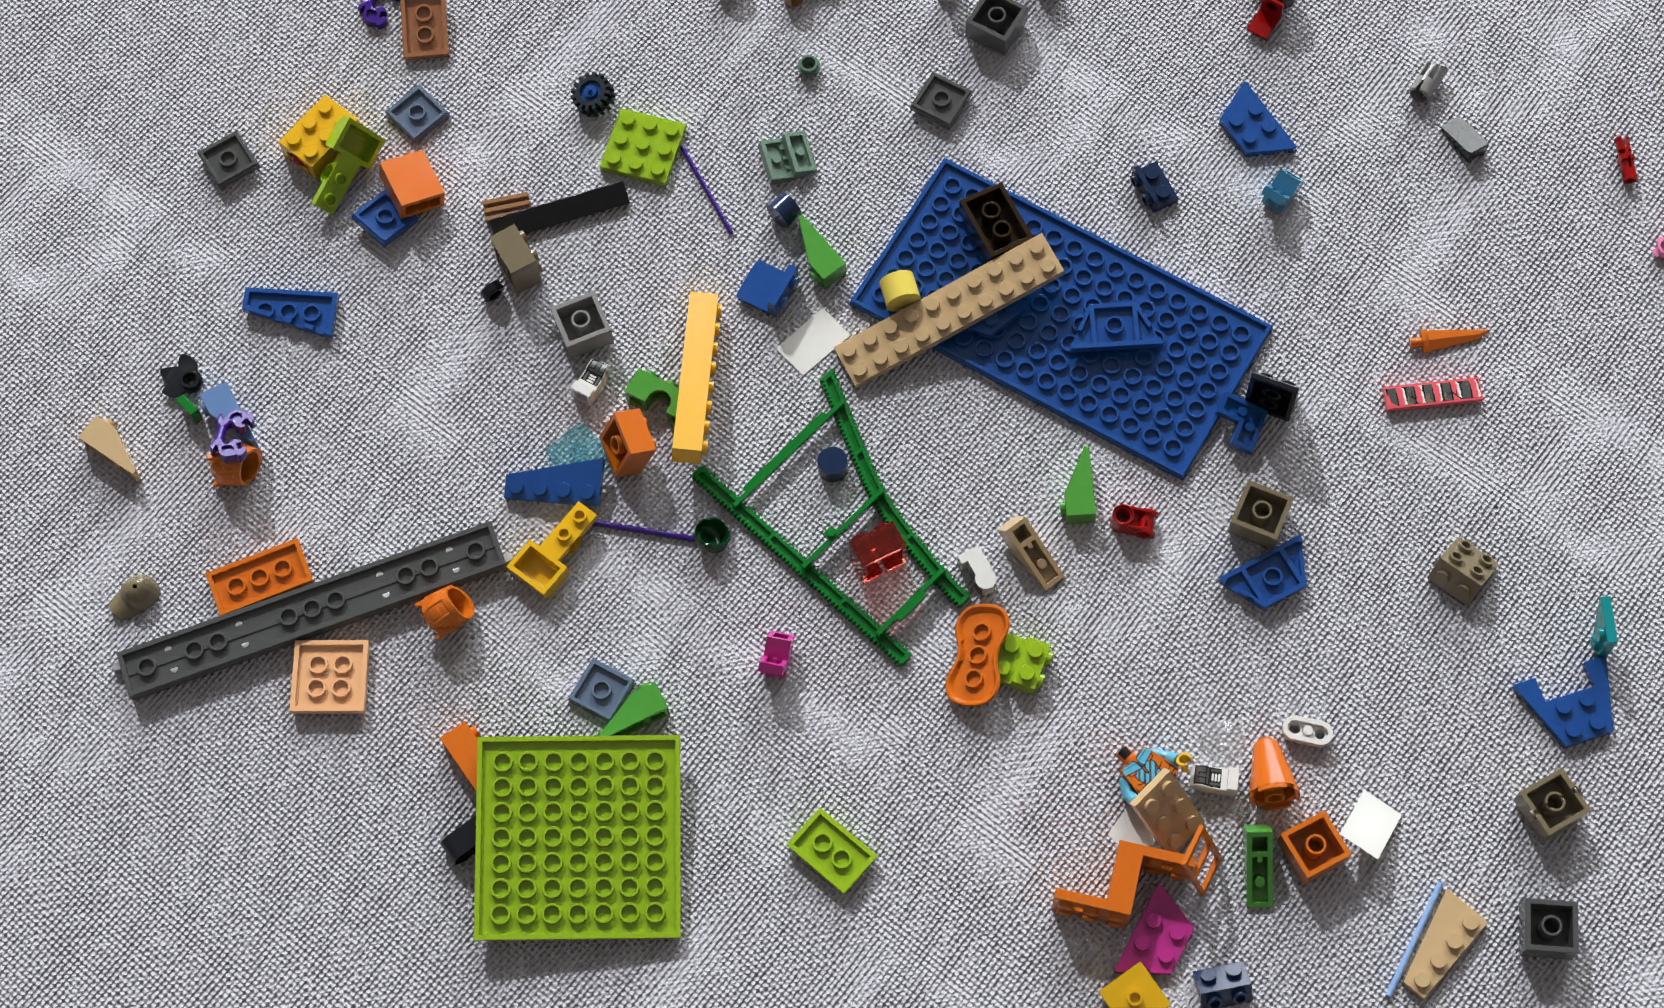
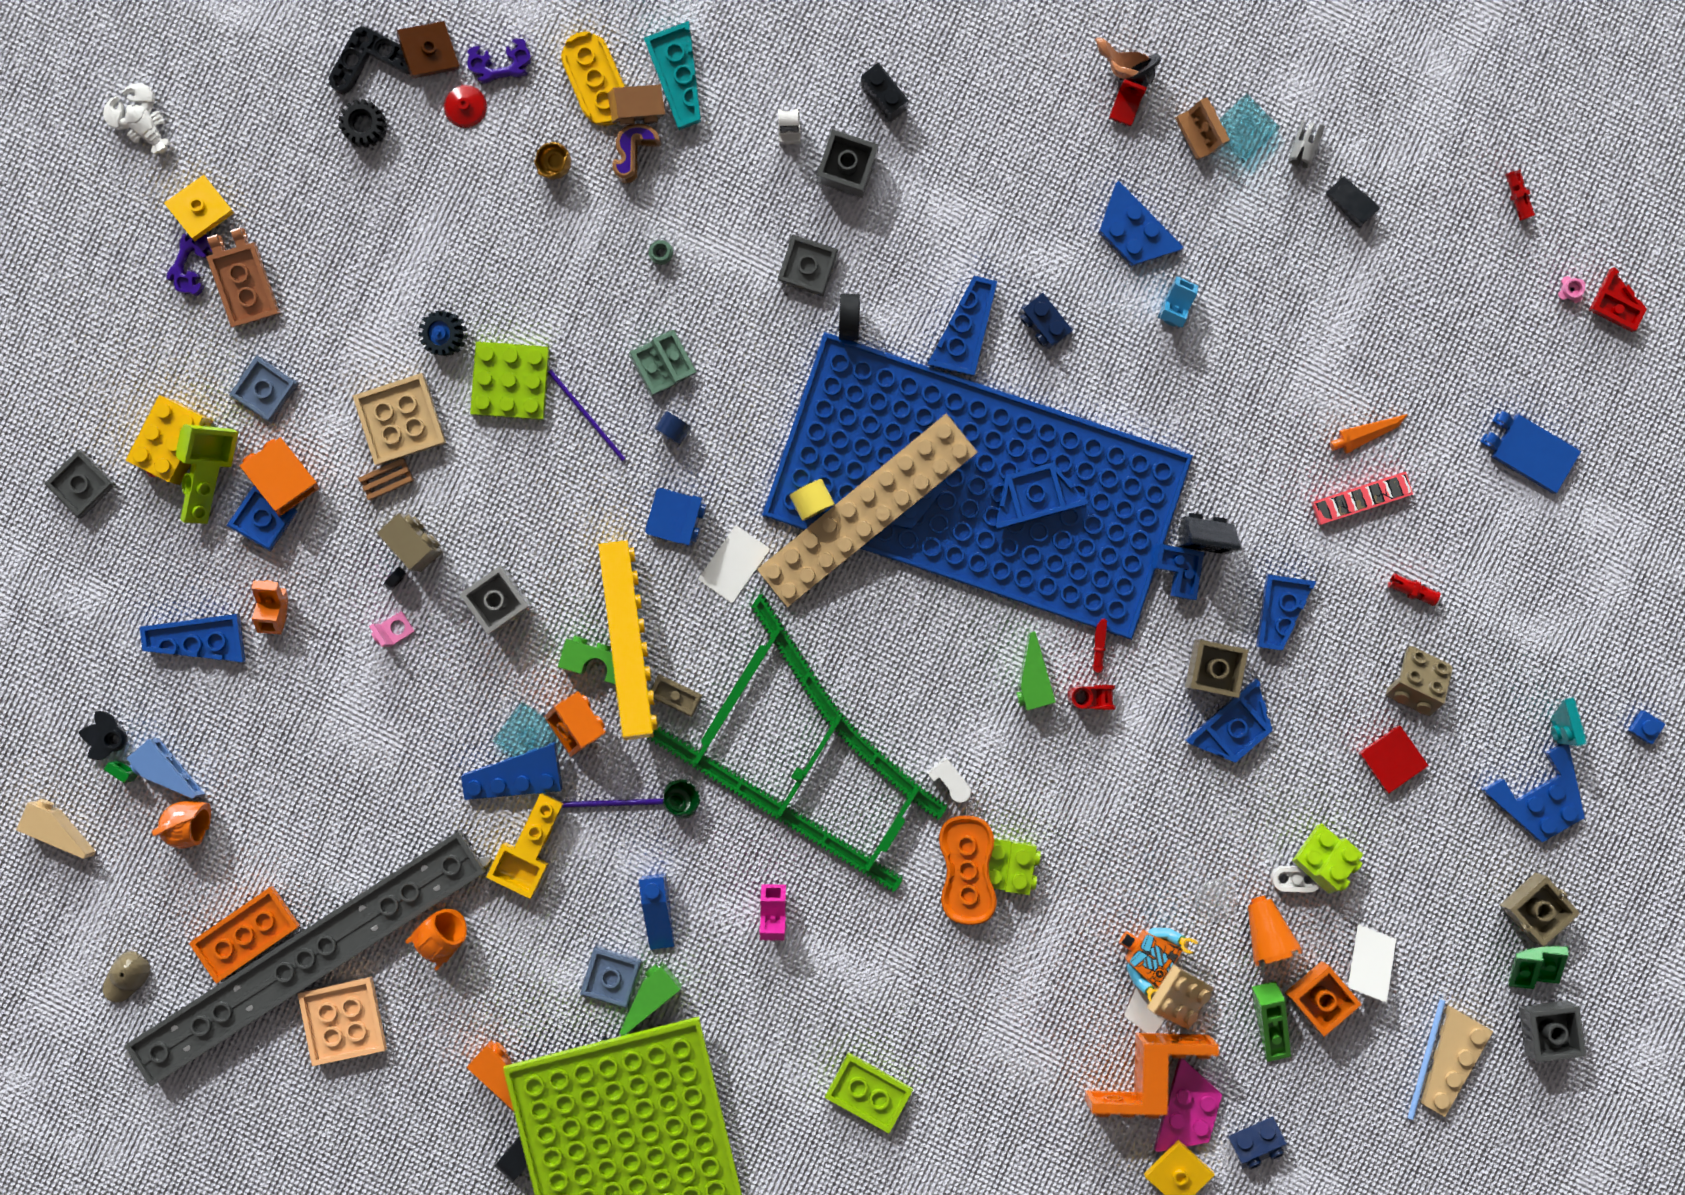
camera: 15 degrees left, 20 degrees up
(233, 450) = (171, 825): dark purple helmet -> none
(372, 291) = (270, 608): none -> orange brick
(469, 336) = (383, 634): none -> bright pink bracket
(533, 159) = (399, 419): none -> tan plate
(564, 209) = (441, 473): black tile -> none
(591, 381) = (521, 656): white leg -> none
(662, 634) = (657, 910): none -> blue slope
(729, 443) = (676, 695): none -> dark tan plate
(822, 260) = (722, 474): bright green slope -> none
(832, 464) = (783, 697): dark blue piece -> none
(880, 544) = (848, 787): clear red piece -> none
(970, 145) = (849, 316): none -> black tyre
(993, 221) = (895, 406): dark brown brick -> none
(1030, 551) = (997, 750): tan slope -> none
(1077, 179) = (965, 332): none -> blue wing
(1150, 475) = (1100, 636): none -> red piece
(1210, 846) = (1222, 1040): orange window -> none
(1214, 780) = (1218, 946): white leg -> none
(1331, 51) = (1202, 129): none -> medium nougat bracket
(1335, 477) = (1280, 609): none -> blue wing
(1342, 716) = (1328, 859): none -> lime plate
(1373, 60) = (1247, 127): none -> clear light blue plate
(1425, 639) = (1393, 759): none -> red tile
(1470, 485) = (1414, 589): none -> red pin
(1542, 860) = (1538, 965): none -> green slope
(1606, 383) = (1531, 451): none -> blue tile

